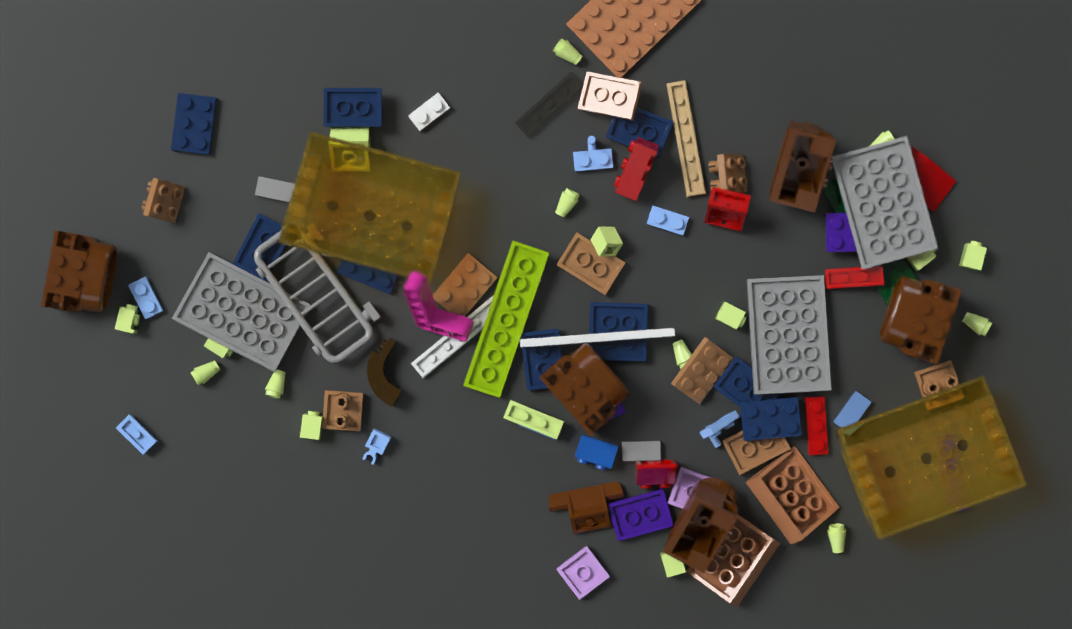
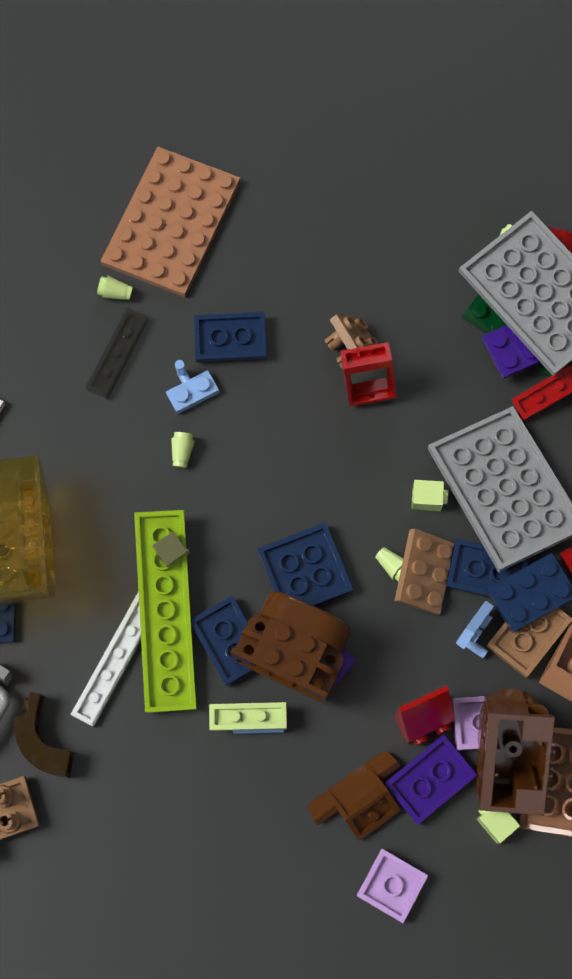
camera: 15 degrees left, 15 degrees down
(377, 443) = (66, 832): light blue plate -> none
(428, 315) = (59, 637): dark pink beam -> none
(464, 286) = (100, 596): medium nougat plate -> none
(527, 278) = (169, 549): none -> olive tile
(585, 264) = (239, 506): medium nougat plate -> none
(595, 451) = (341, 724): blue brick -> none
(597, 337) = (282, 583): white tile -> none
(606, 241) = (246, 470): yellowish green brick -> none
(610, 95) = (181, 312): plate -> none
(635, 168) = (244, 374): red wedge -> none
(641, 450) = (387, 703): light grey tile -> none
(667, 220) = (307, 422): light blue plate -> none
(686, 138) = (288, 327): tan tile -> none
(802, 166) = (435, 268): reddish brown brick -> none

